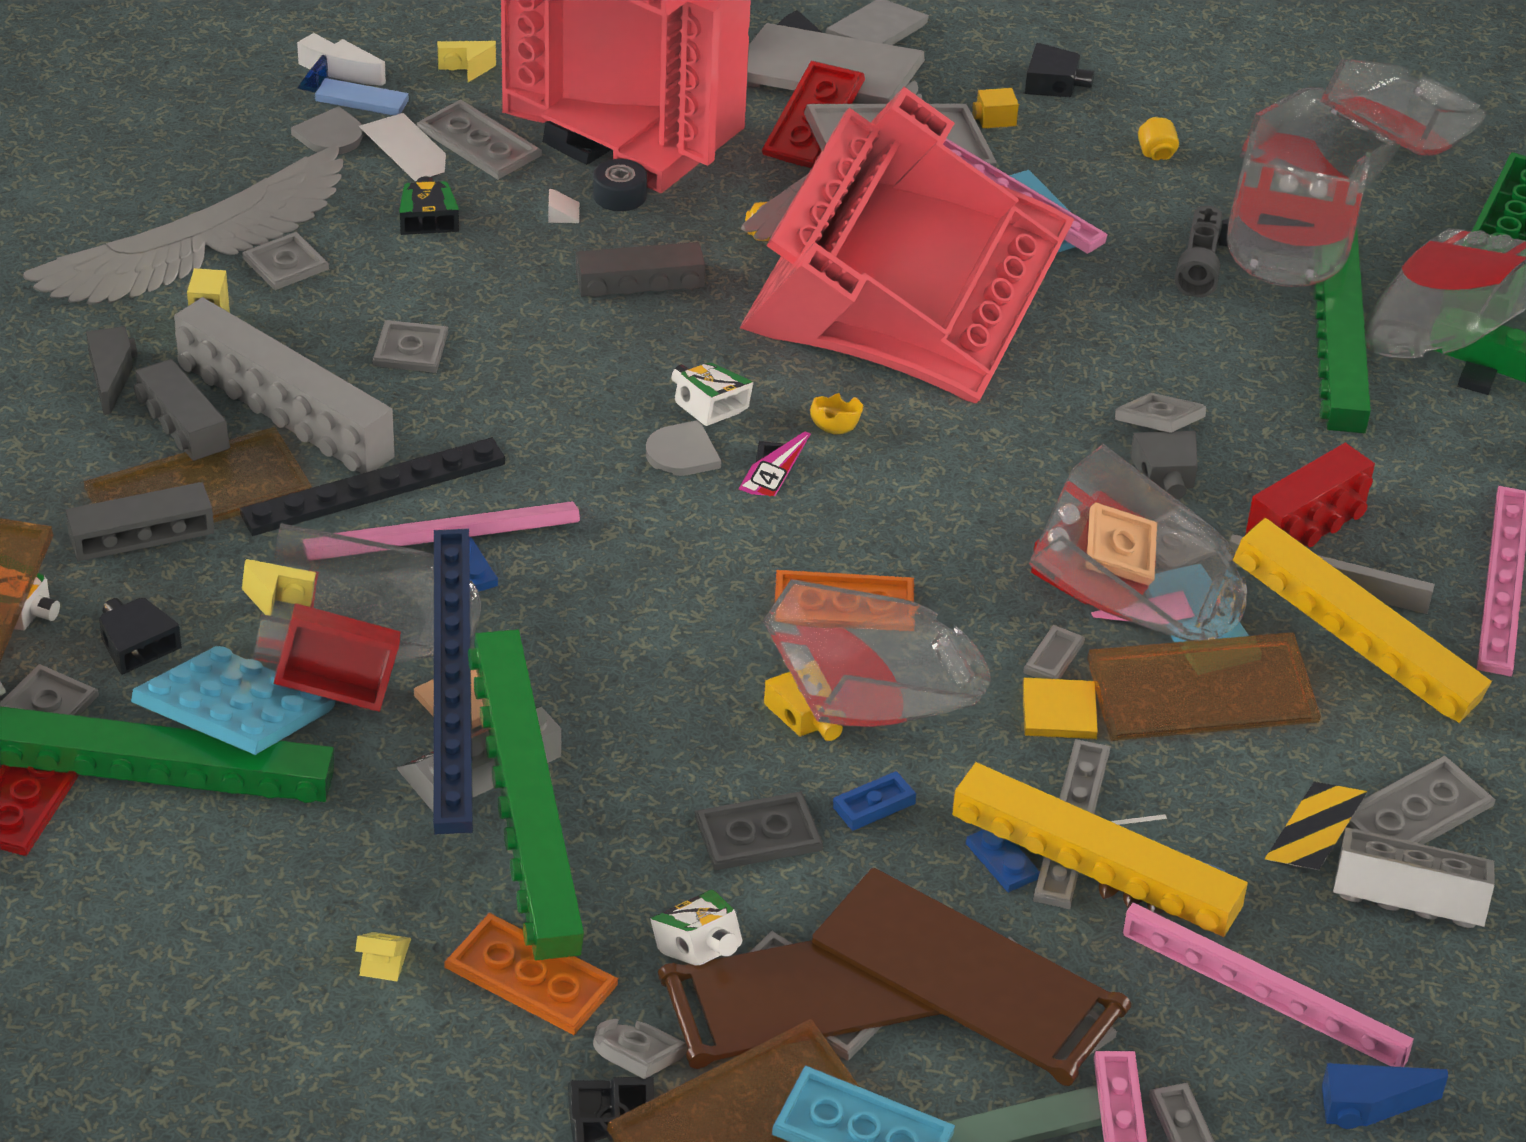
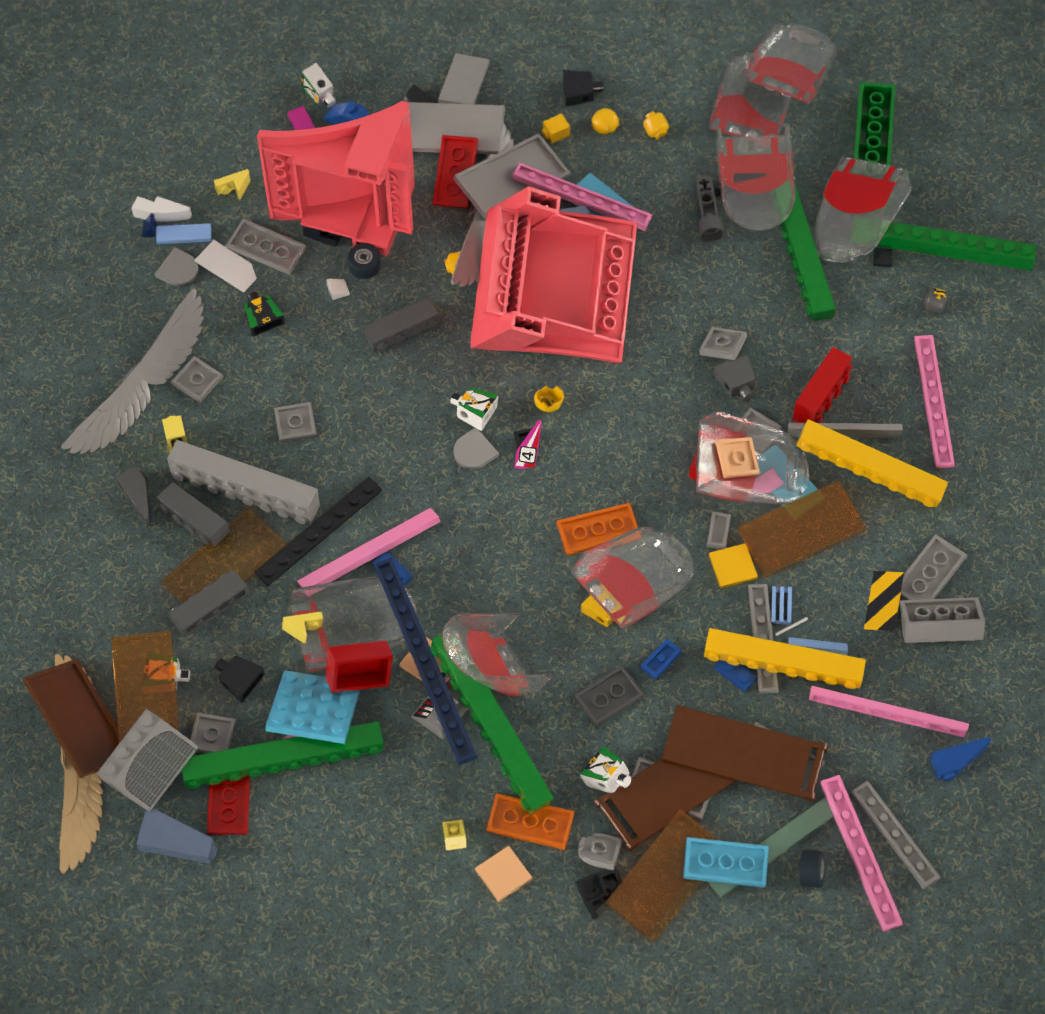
camera: 15 degrees left, 20 degrees up
(443, 1037) = (503, 873): none -> light nougat tile
(569, 684) = (484, 653): none -> clear windscreen
(1079, 118) = (605, 121): none -> yellow hair
(1131, 765) = (781, 590): none -> light blue tile

